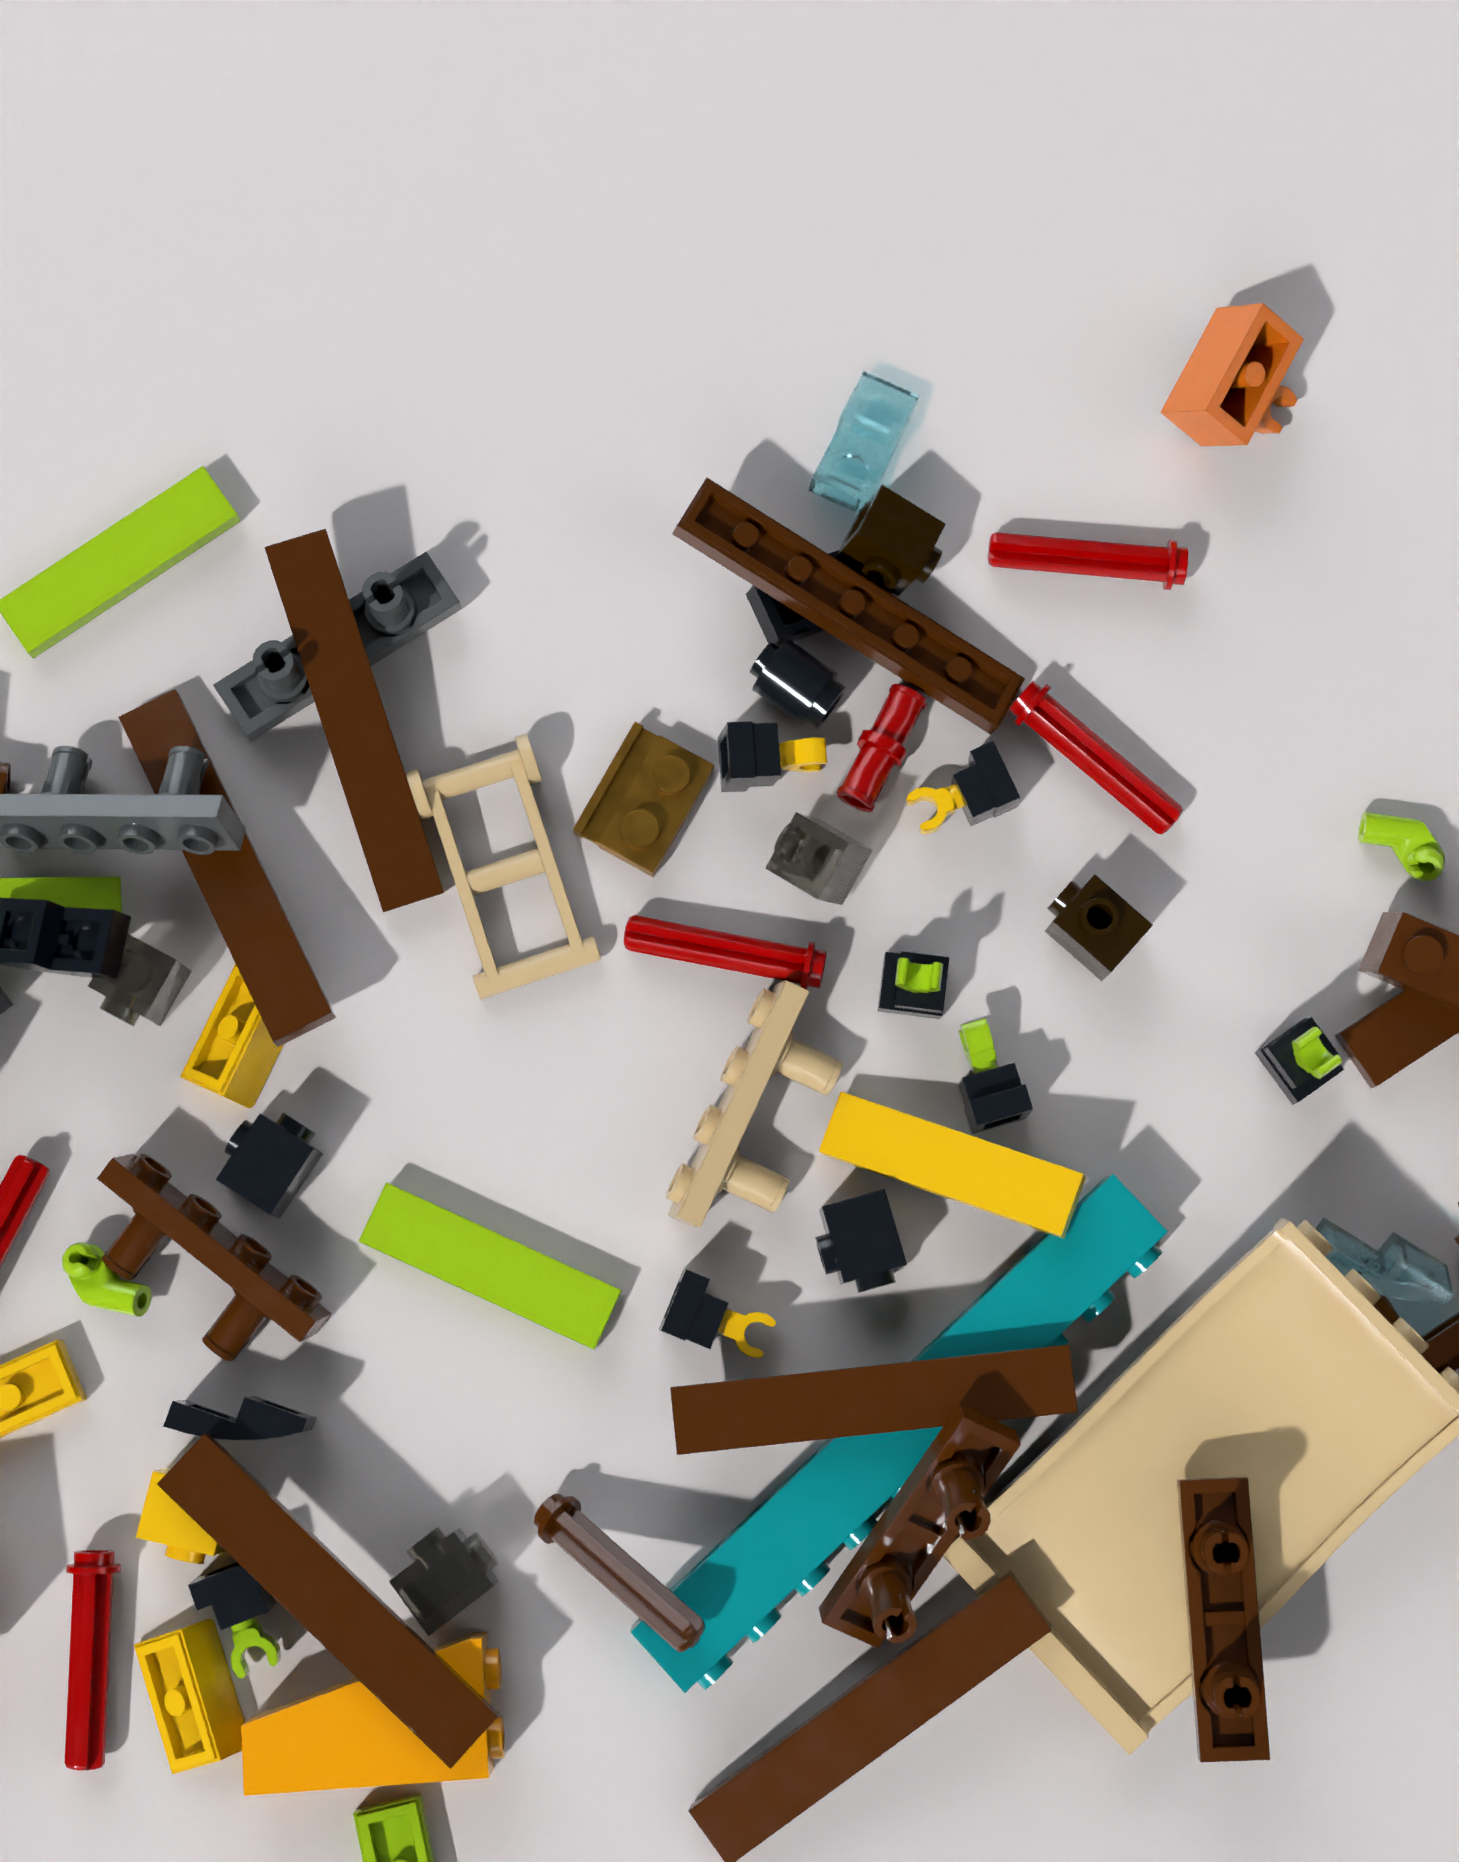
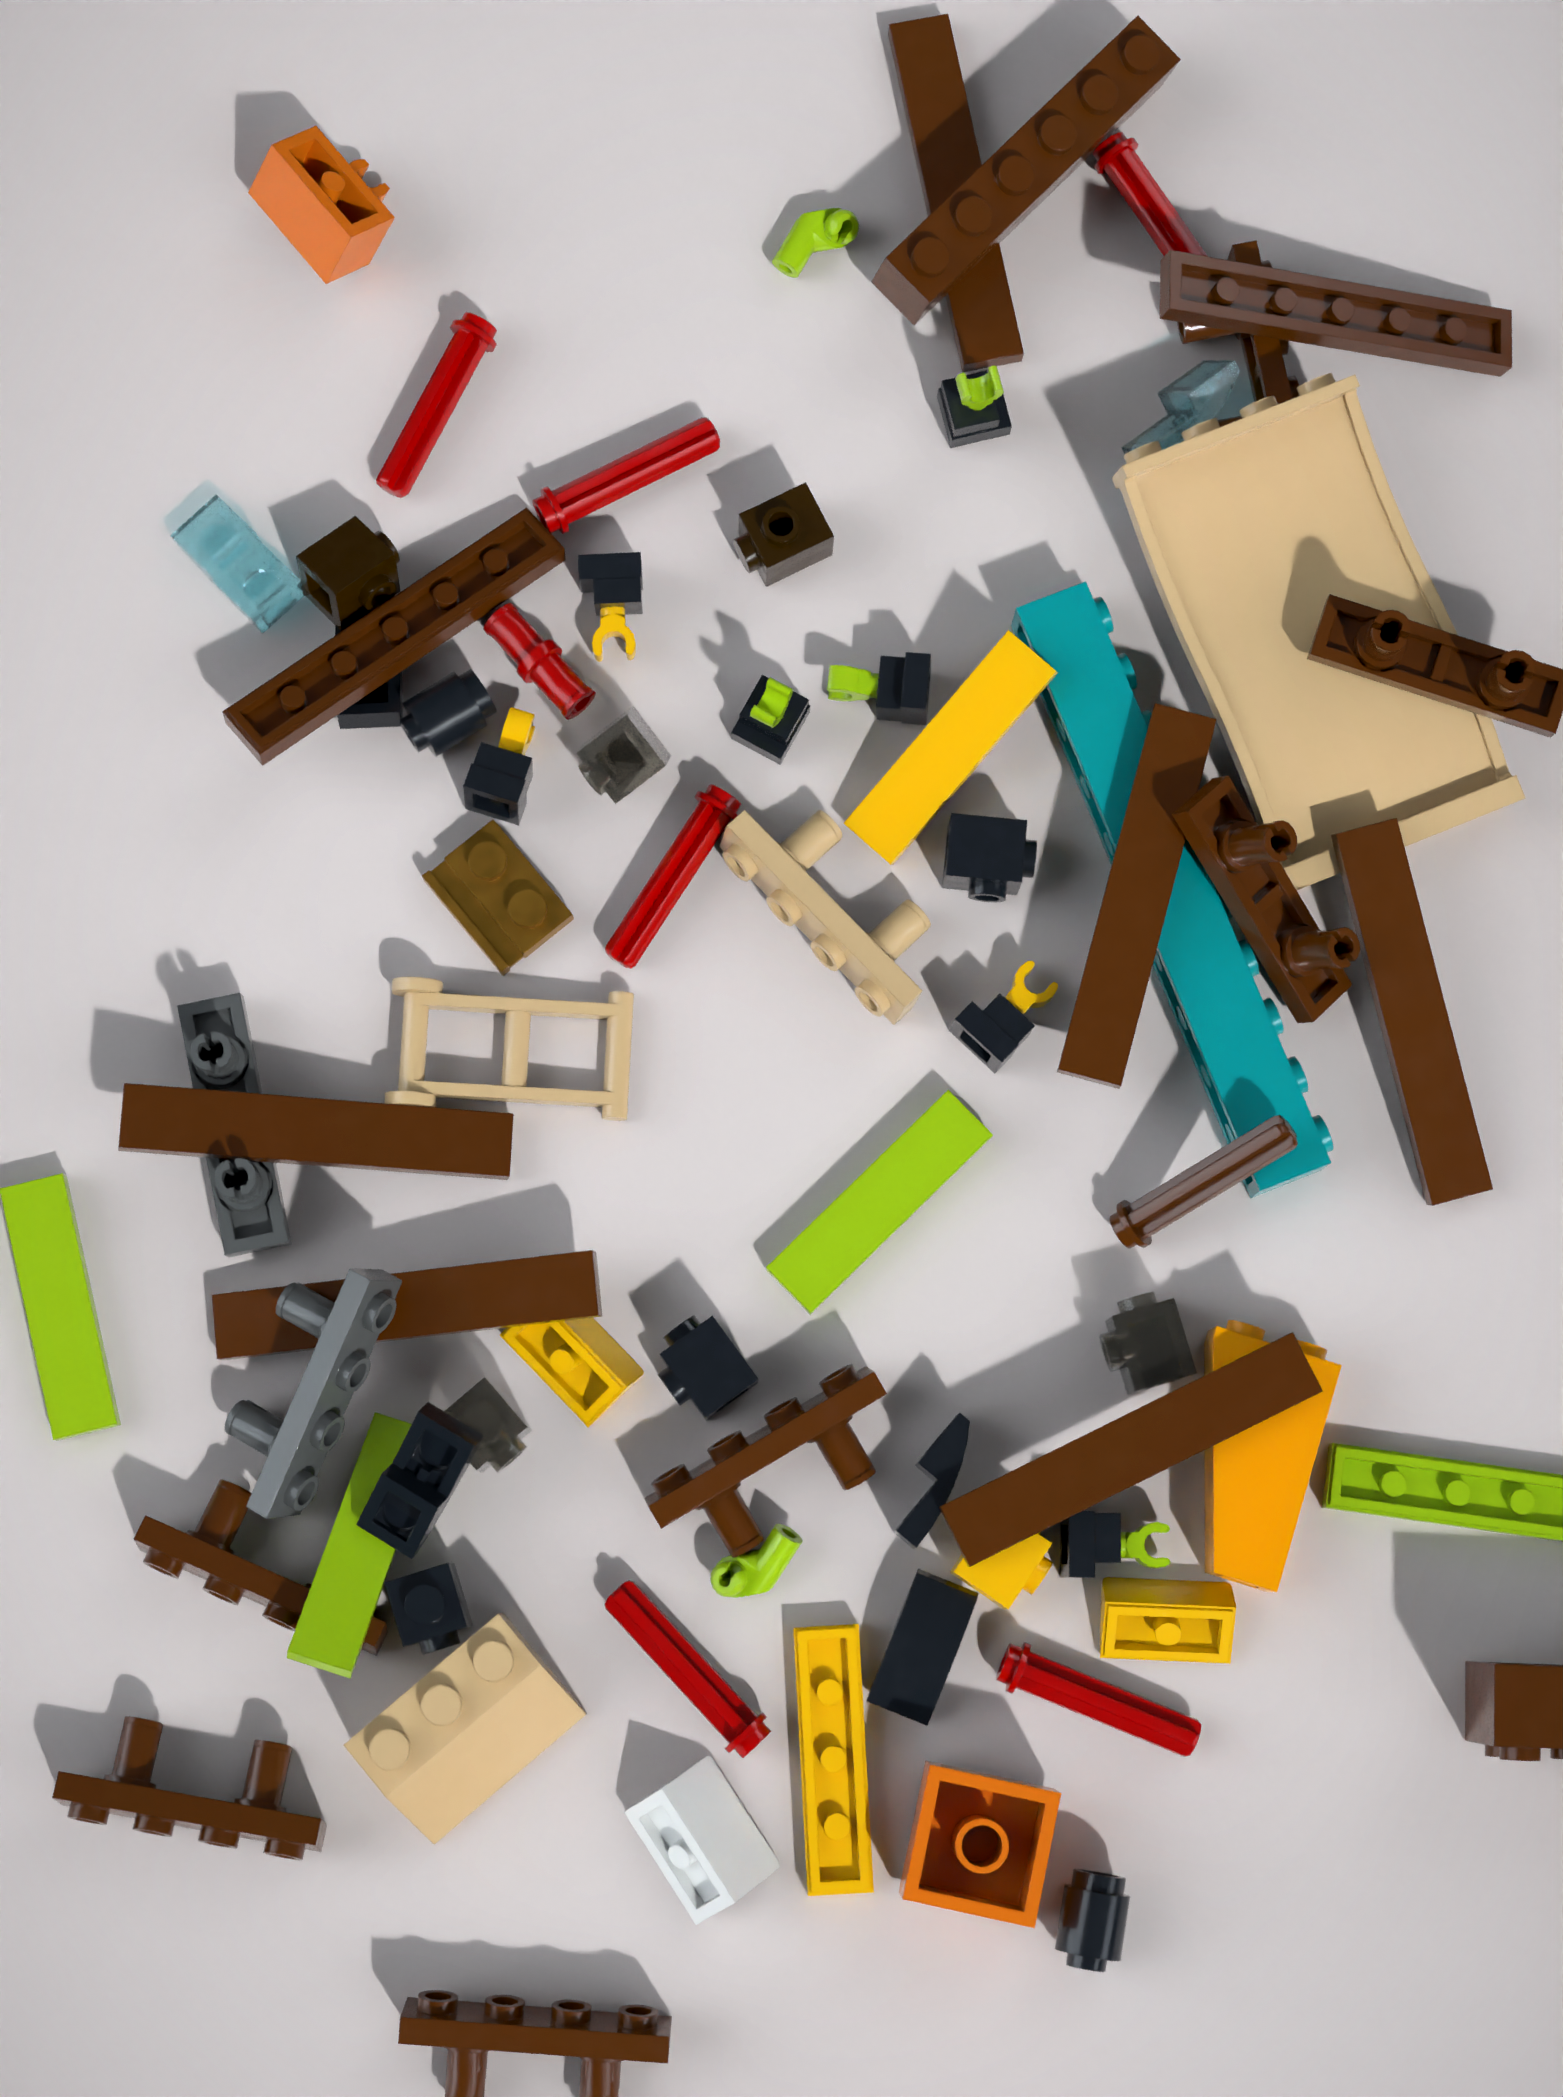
camera: 70 degrees left, 0 degrees up
(80, 1469) = (922, 1647): none -> black slope

